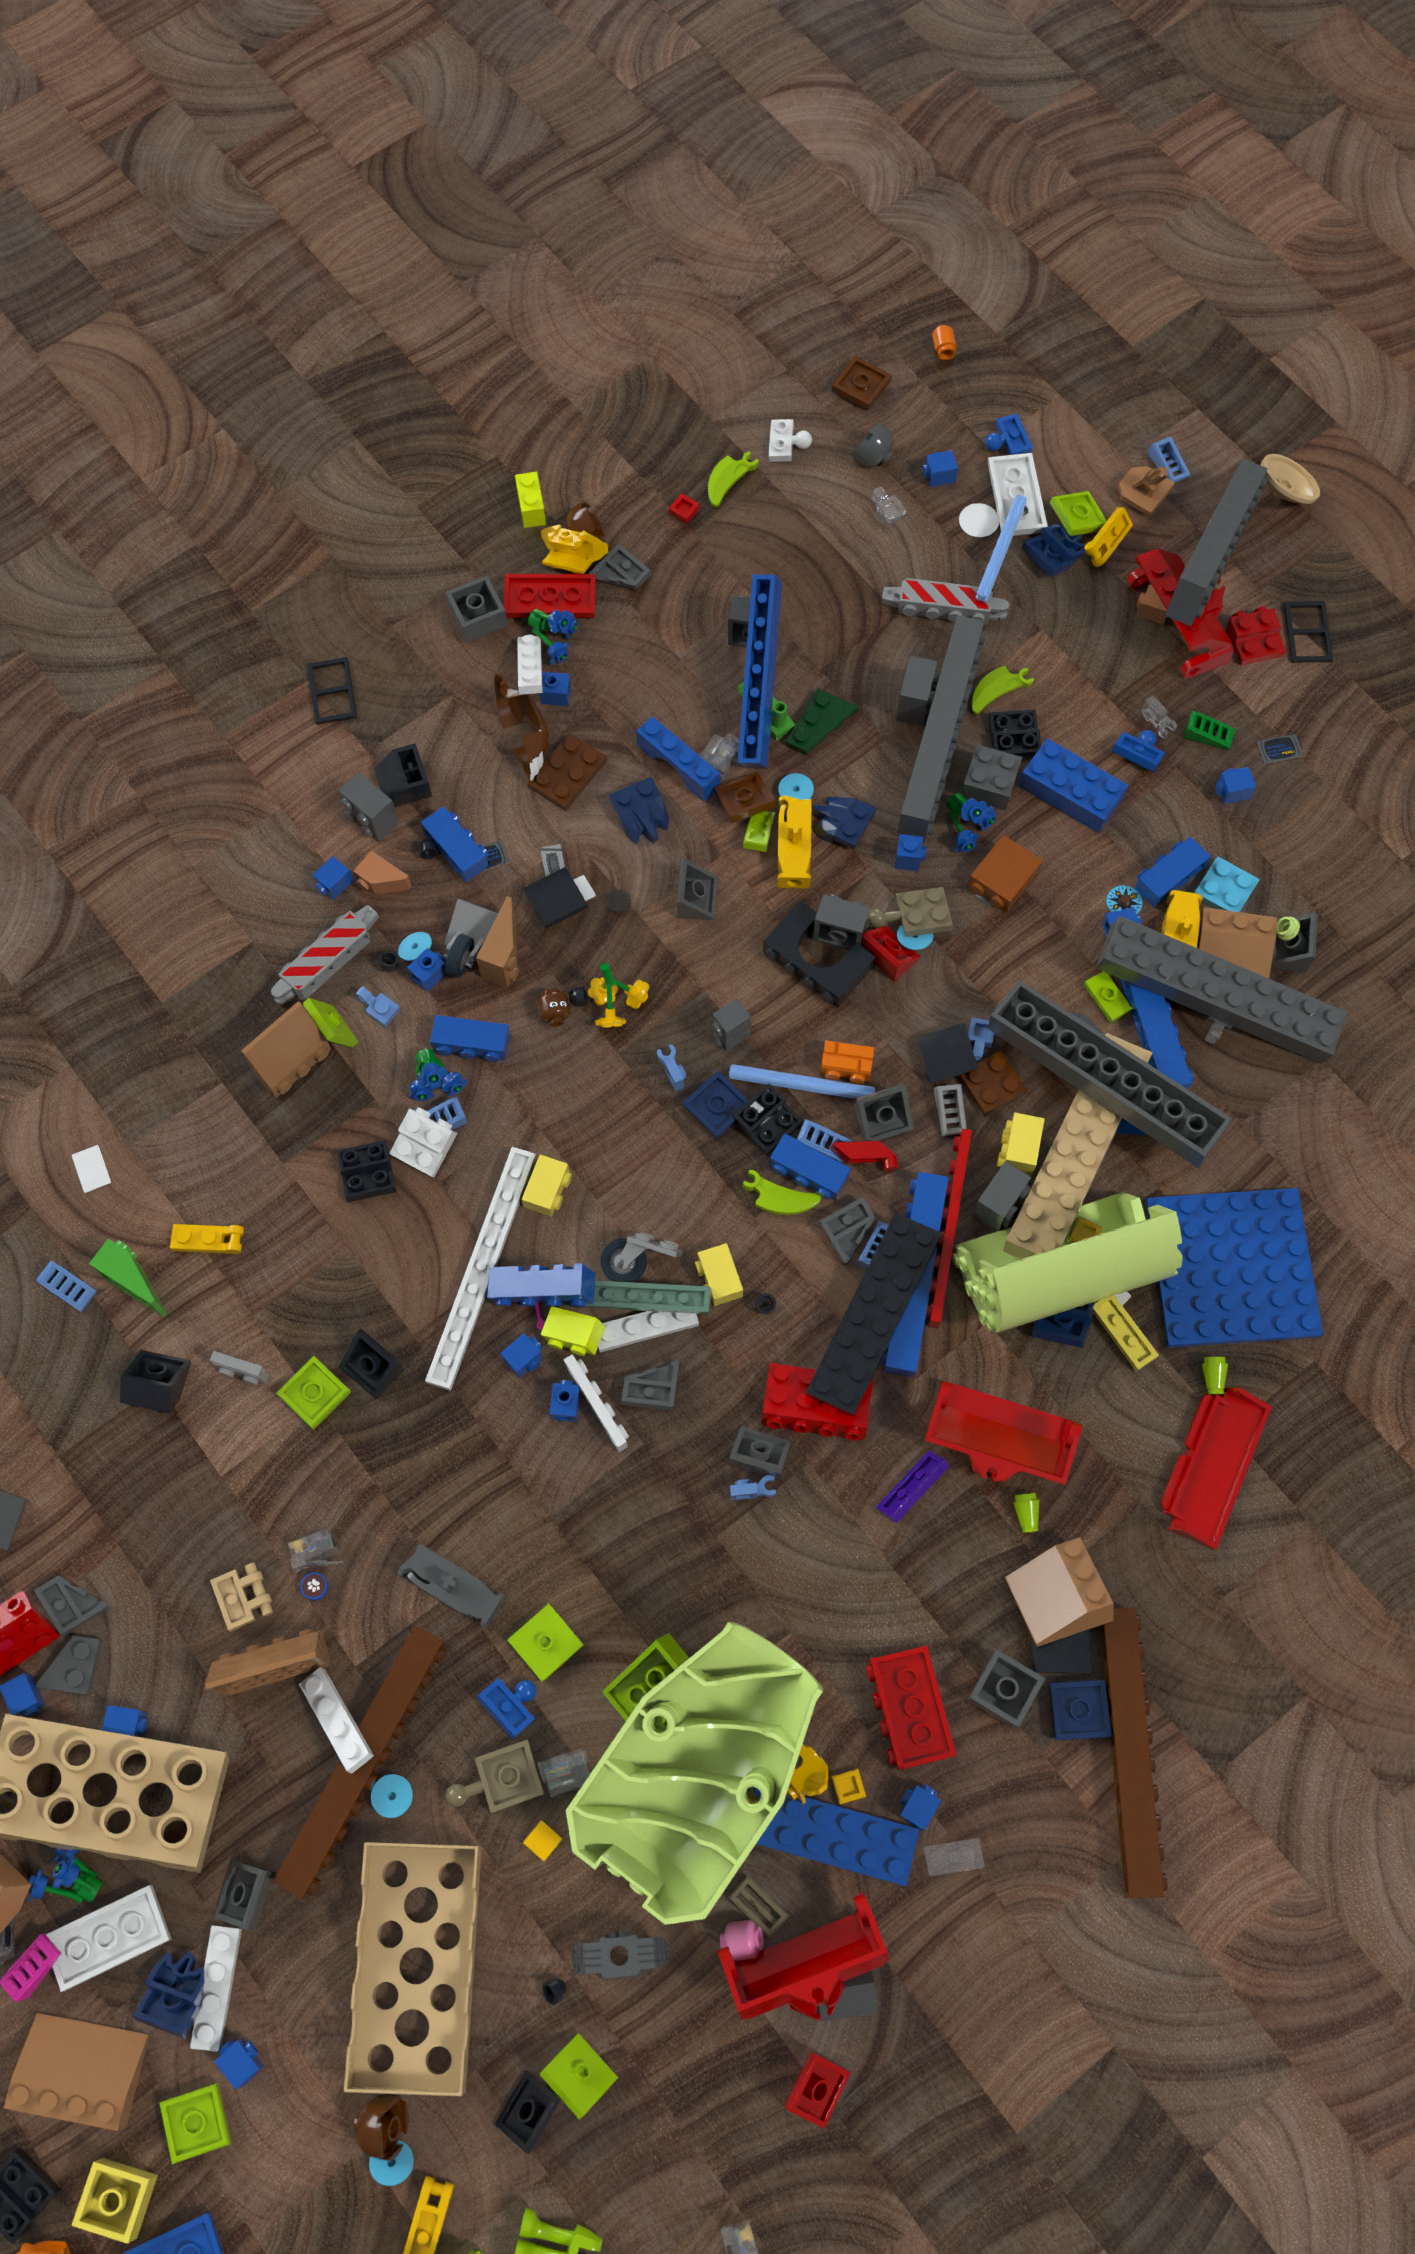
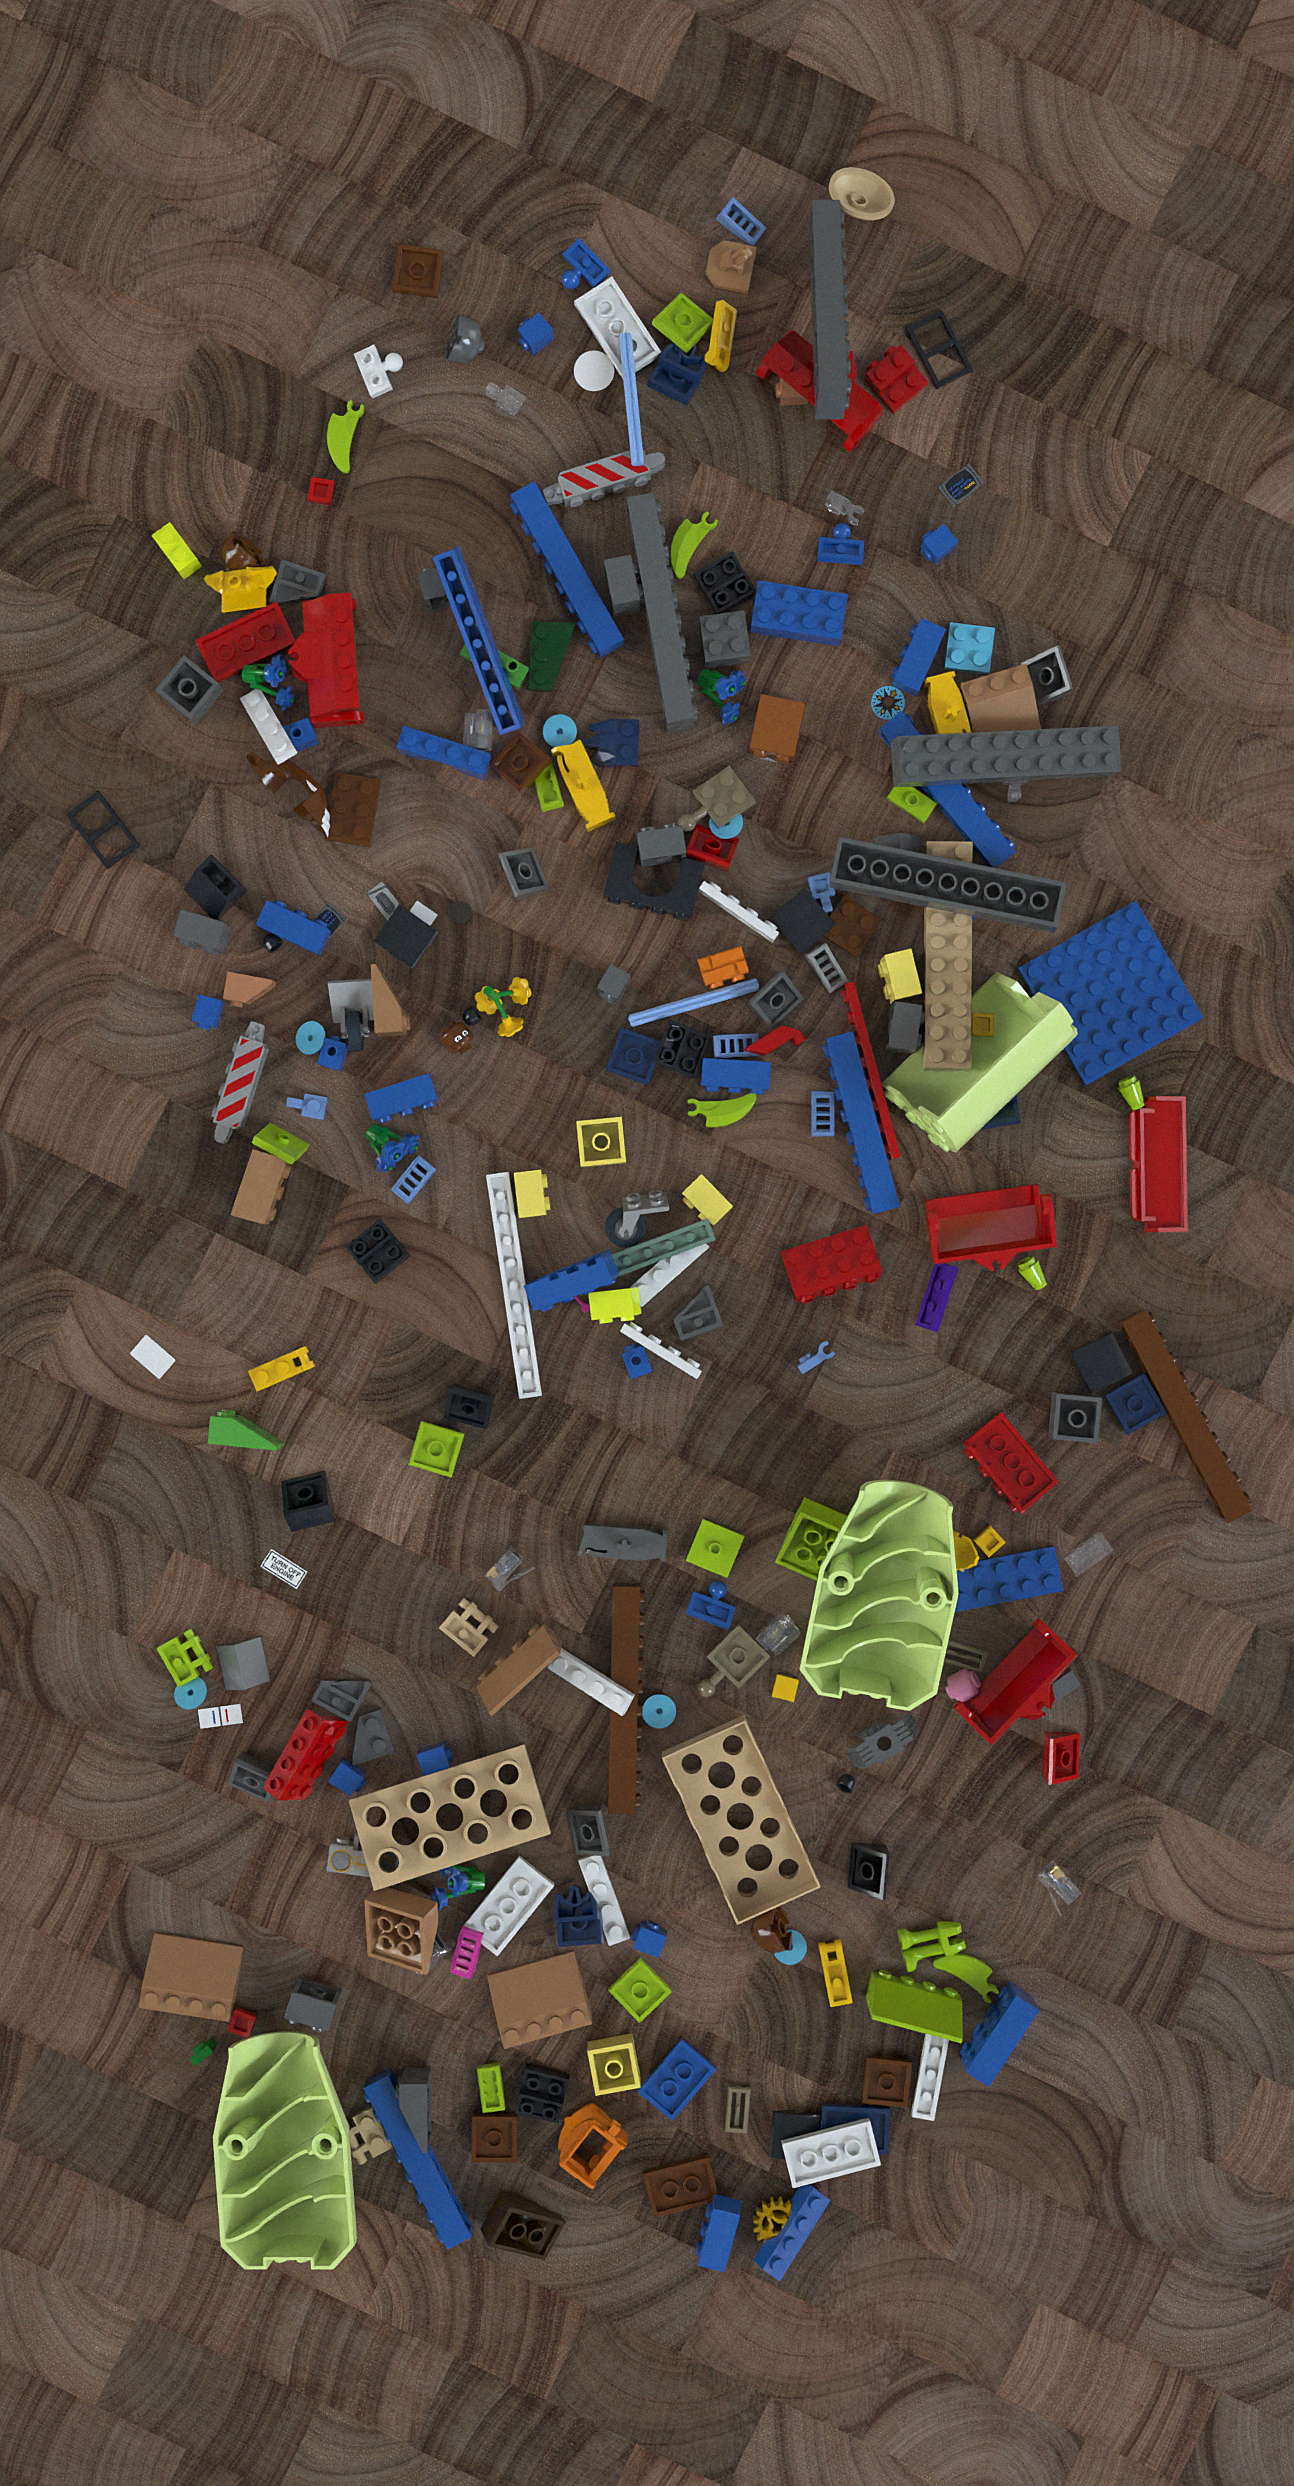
camera: 30 degrees left, 20 degrees up
(50, 1274) = (191, 1469): medium blue slope -> none
(91, 1441) = (283, 1568): none -> white sticker
(231, 1366) = (361, 1462): light grey plate -> none
(314, 1586) = (518, 1592): tile -> none
(391, 960) = (296, 1058): black hinge -> none
(423, 1141) = (411, 1205): white plate -> none
(523, 1355) = (585, 1340): blue brick -> none
(578, 2076) = (892, 1831): lime plate -> none
(611, 633) = (328, 660): none -> red piece
(640, 810) = (436, 817): dark blue plate -> none
(642, 1167) = (601, 1142): none -> light yellow brick
(674, 1072) = (587, 1045): medium blue plate -> none
(759, 1453) = (807, 1326): dark grey slope -> none
(768, 1308) = (757, 1208): black hinge -> none
(847, 1227) = (790, 1110): dark grey wing -> none
(872, 661) = (567, 570): none -> blue brick
(873, 1314) = (846, 1176): black plate -> none
(884, 1011) = (746, 916): none -> white plate
(910, 852) = (687, 747): blue brick -> none
(919, 1806) = (1048, 1531): blue brick -> none
(944, 342) = (474, 187): orange brick -> none
(1060, 1593) = (1085, 1327): slope -> none
(1124, 1332) = (1052, 1095): light yellow plate -> none
(1207, 738) = (878, 508): green slope -> none
(1287, 928) = (1033, 667): yellowish green plate -> none

